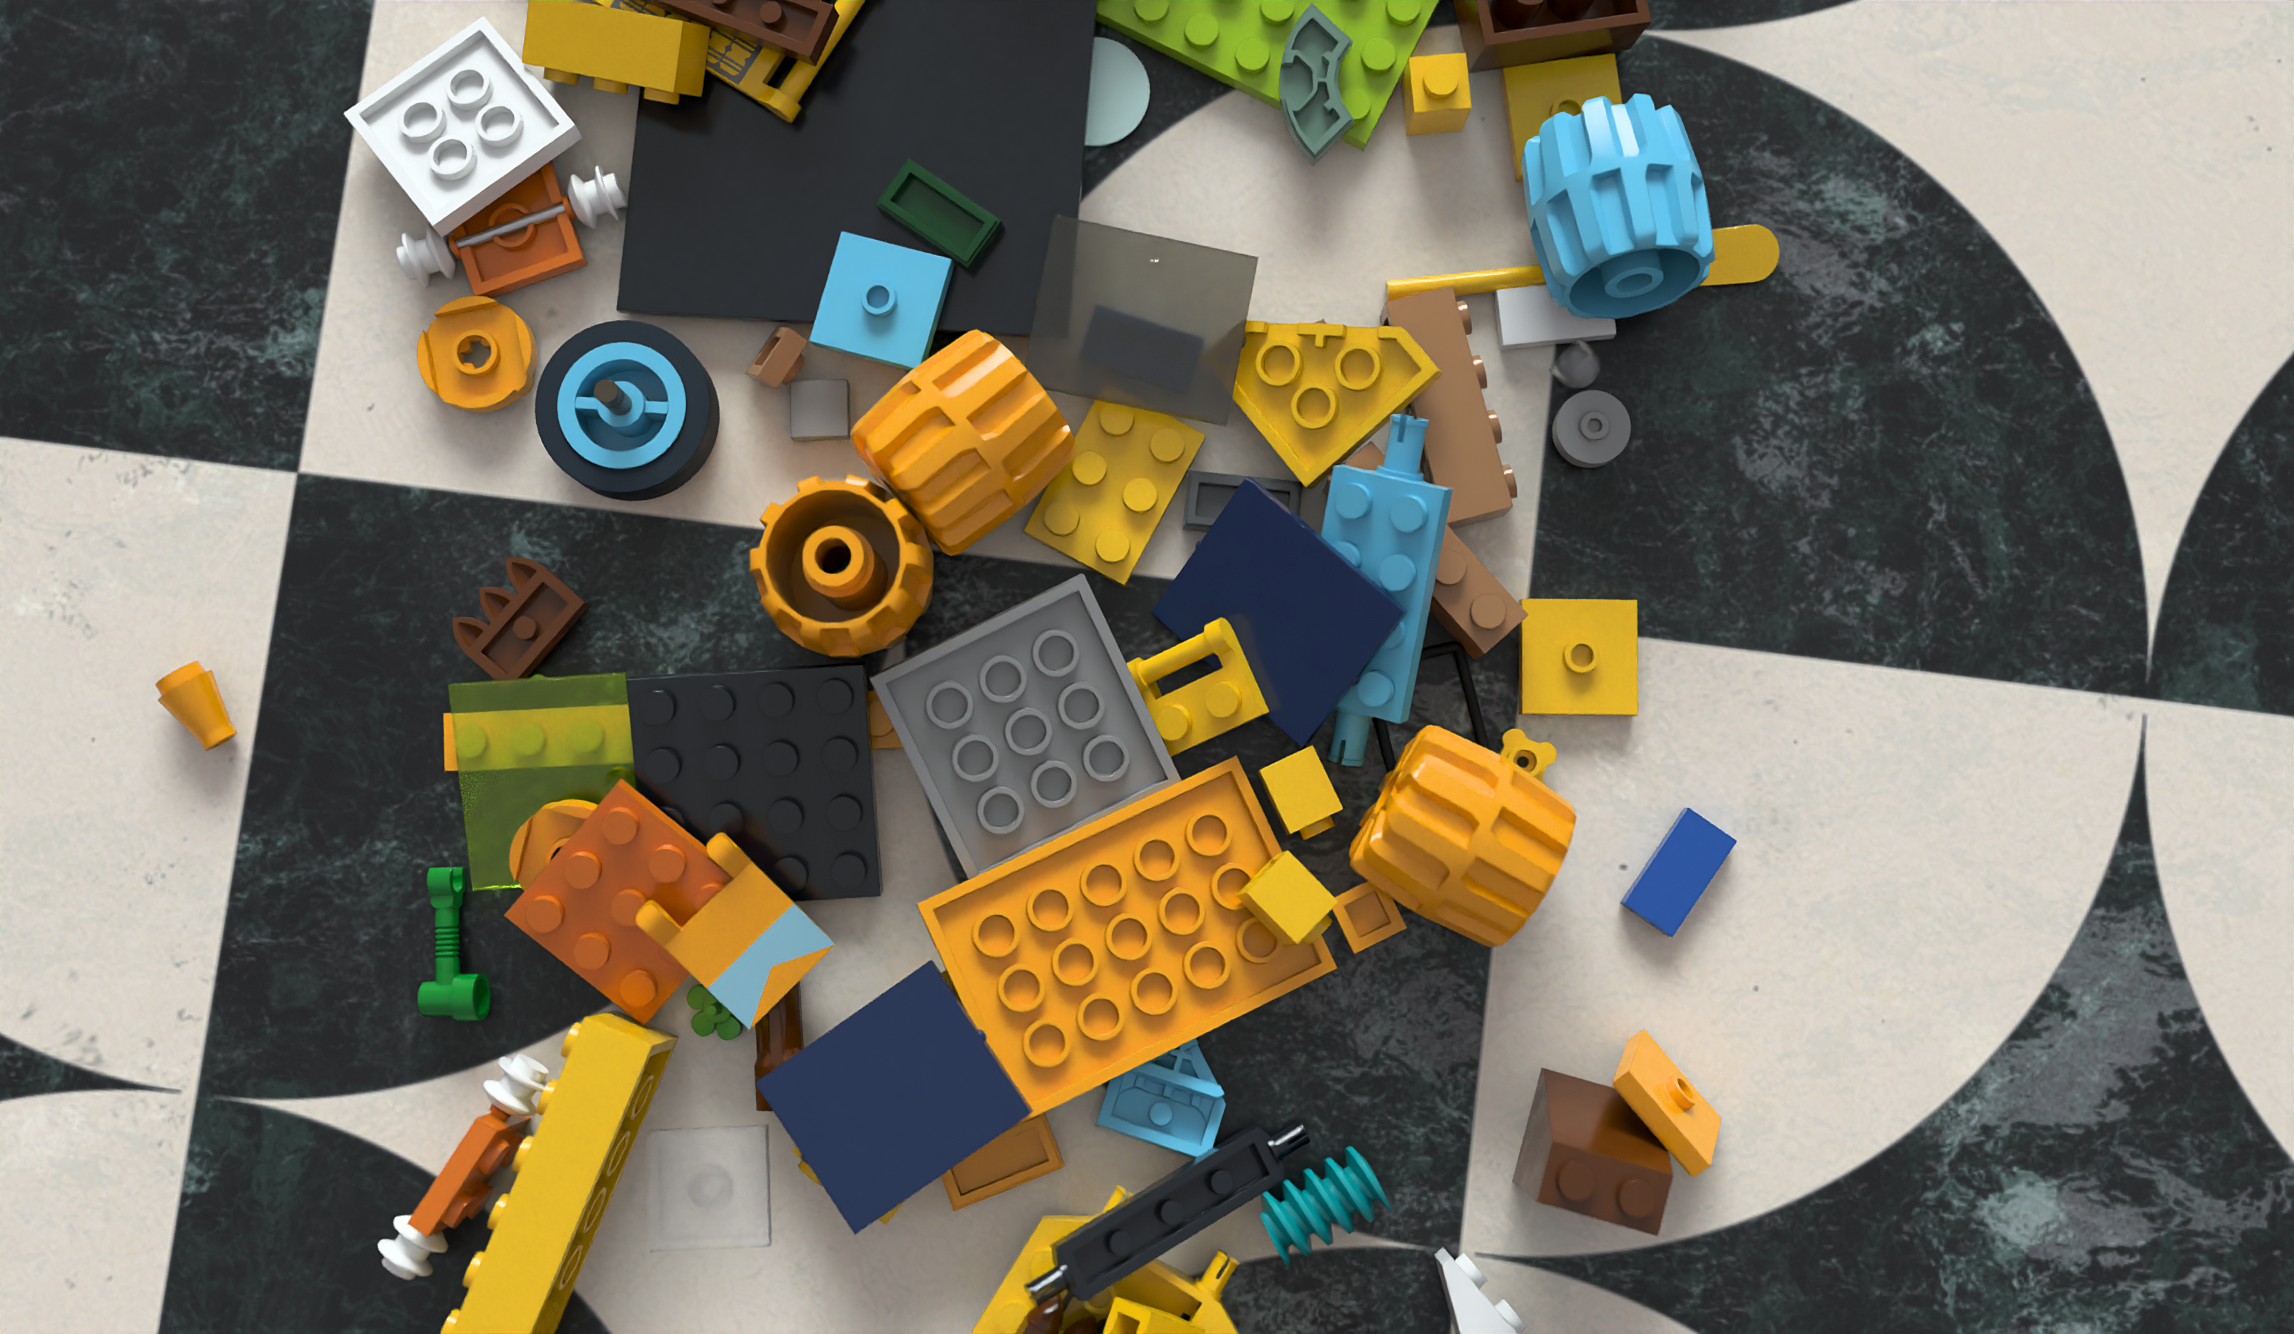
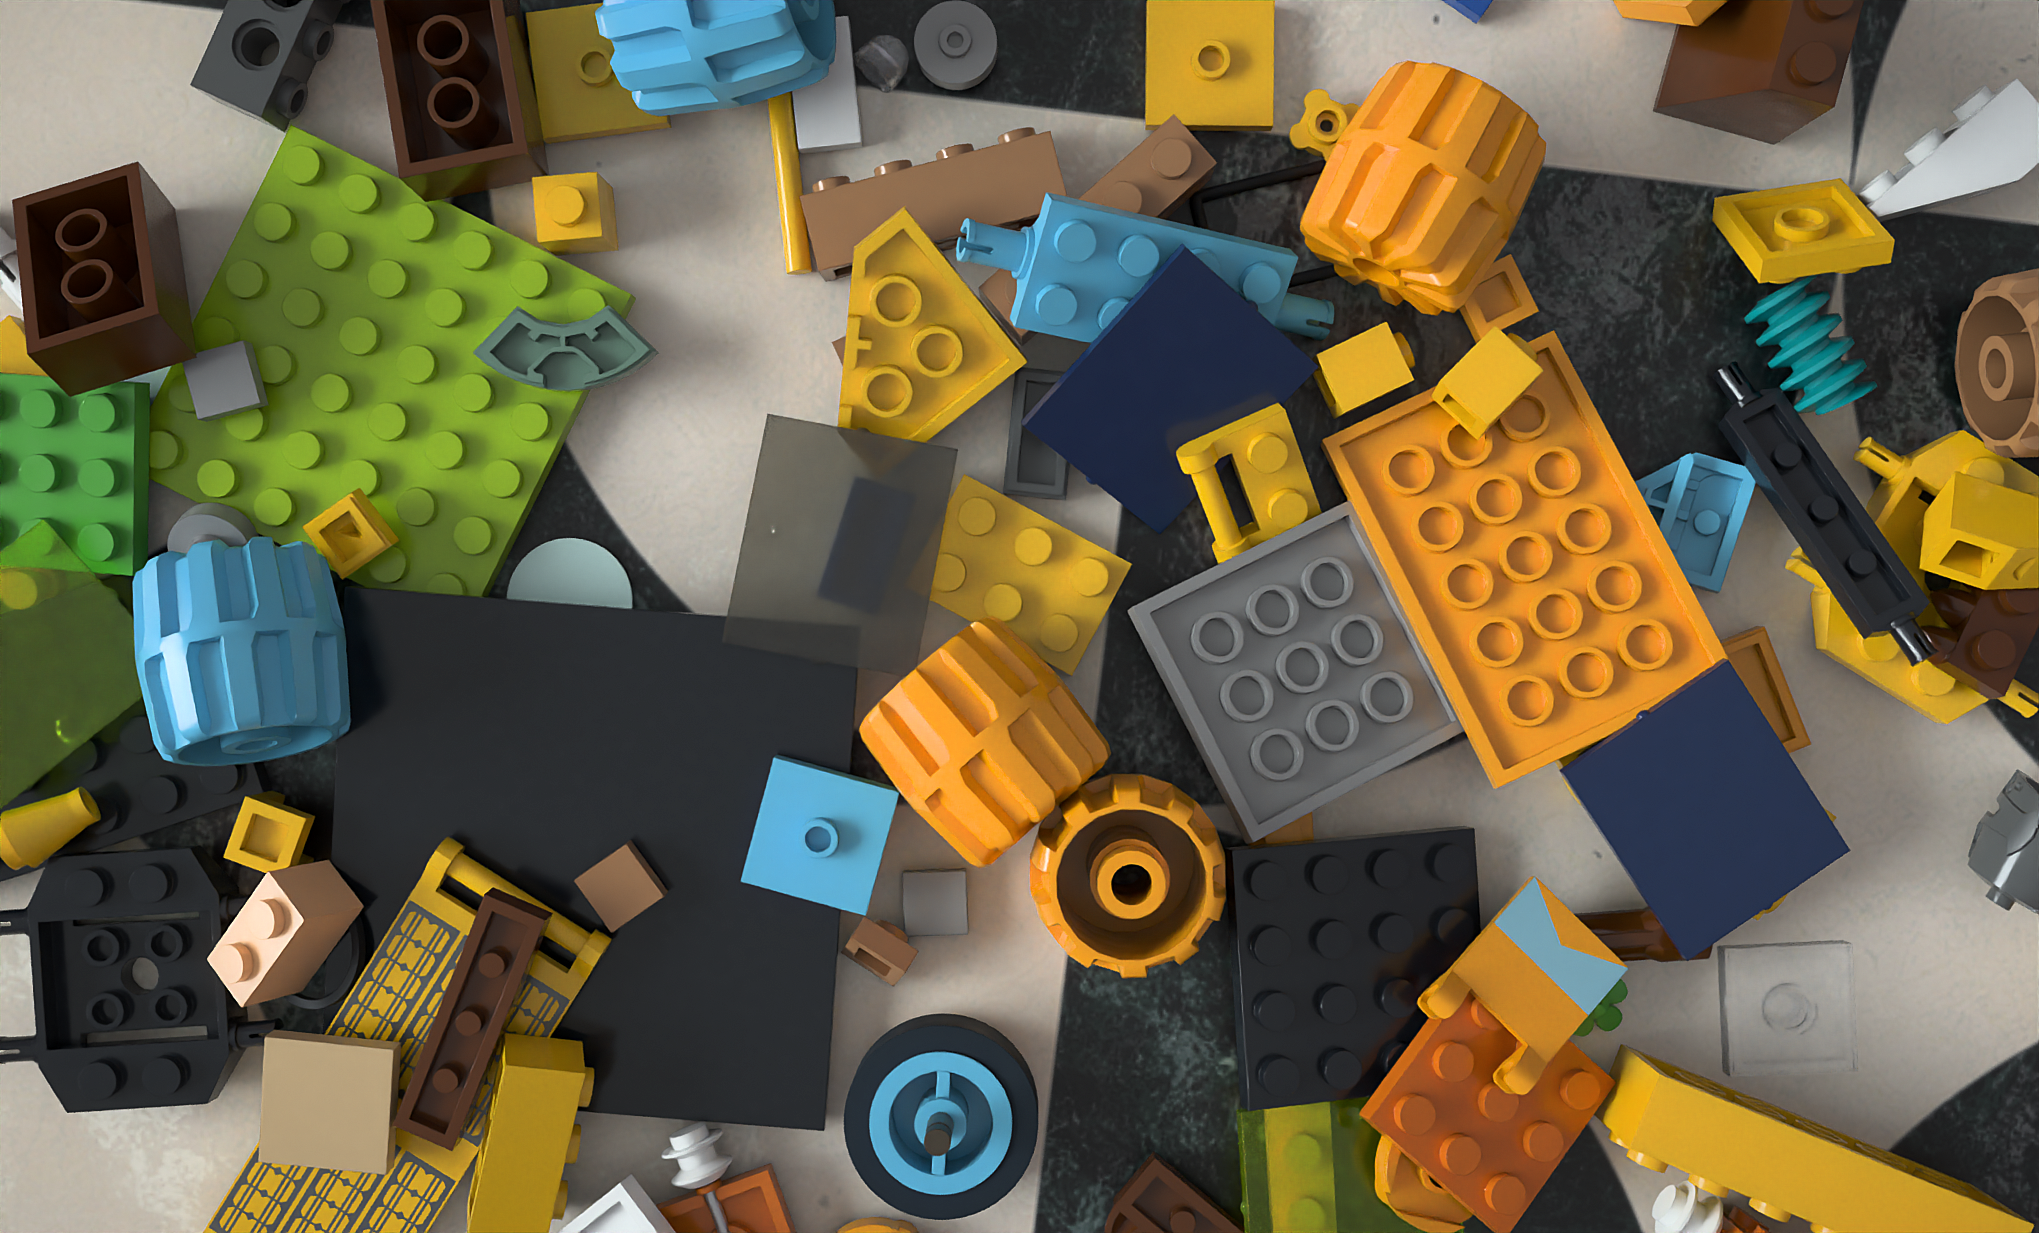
camera: 90 degrees left, 5 degrees up
(838, 129) = (621, 886): none -> medium nougat tile
(939, 215) = (720, 771): dark green tile -> none
(1428, 1194) = (1802, 231): none -> yellow plate

